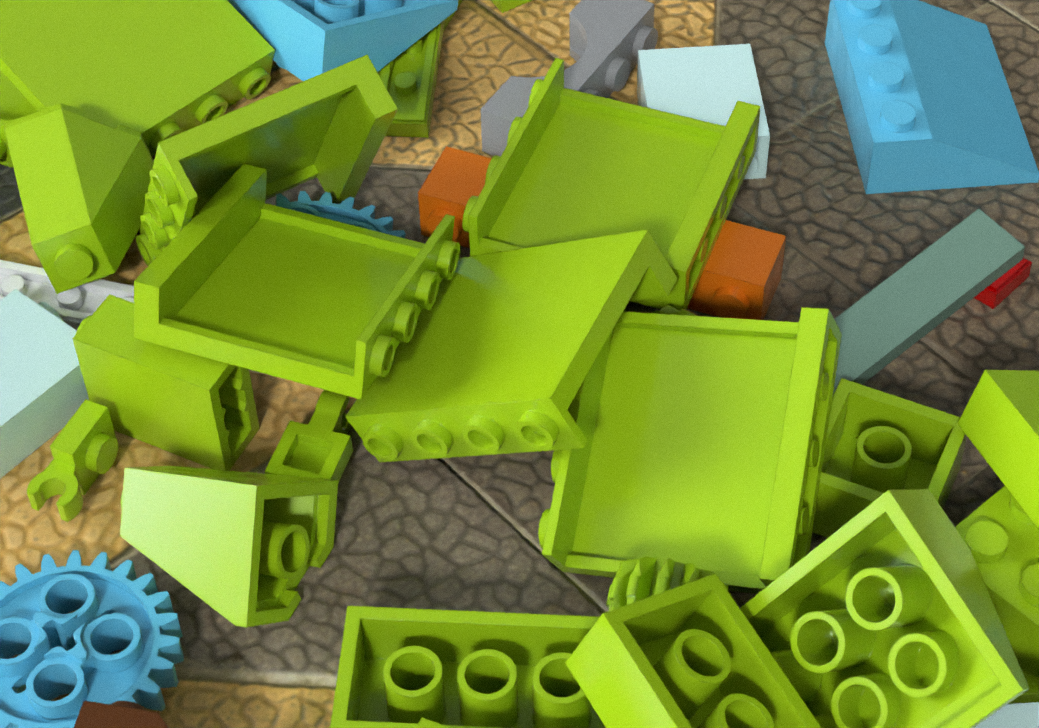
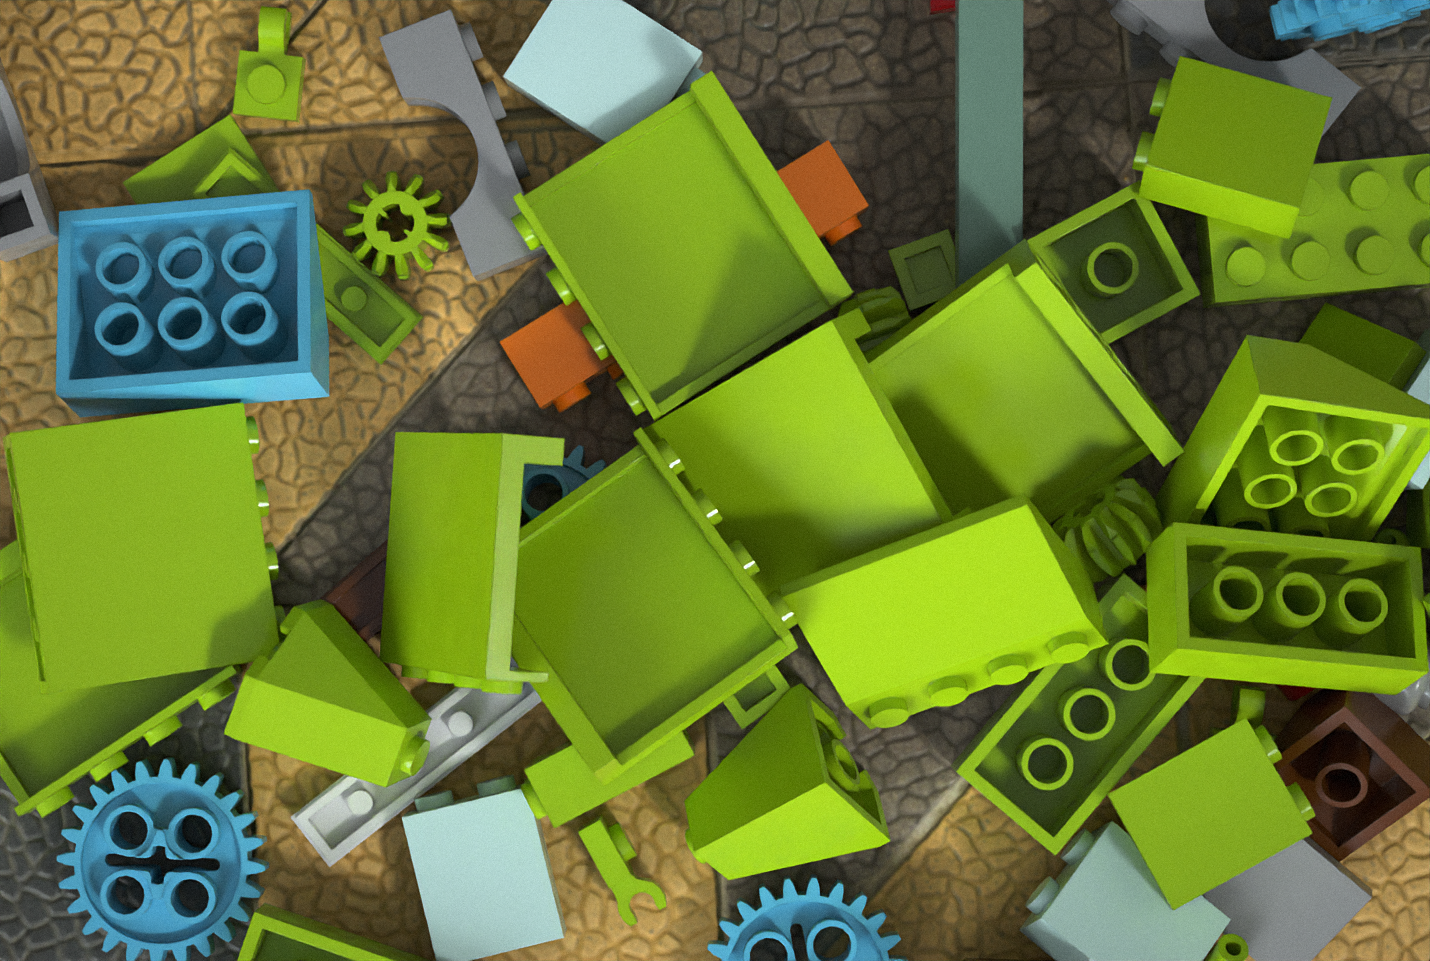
camera: 60 degrees left, 40 degrees up
(474, 69) = (382, 241): none -> lime gear
(490, 485) = (948, 613): none -> lime slope

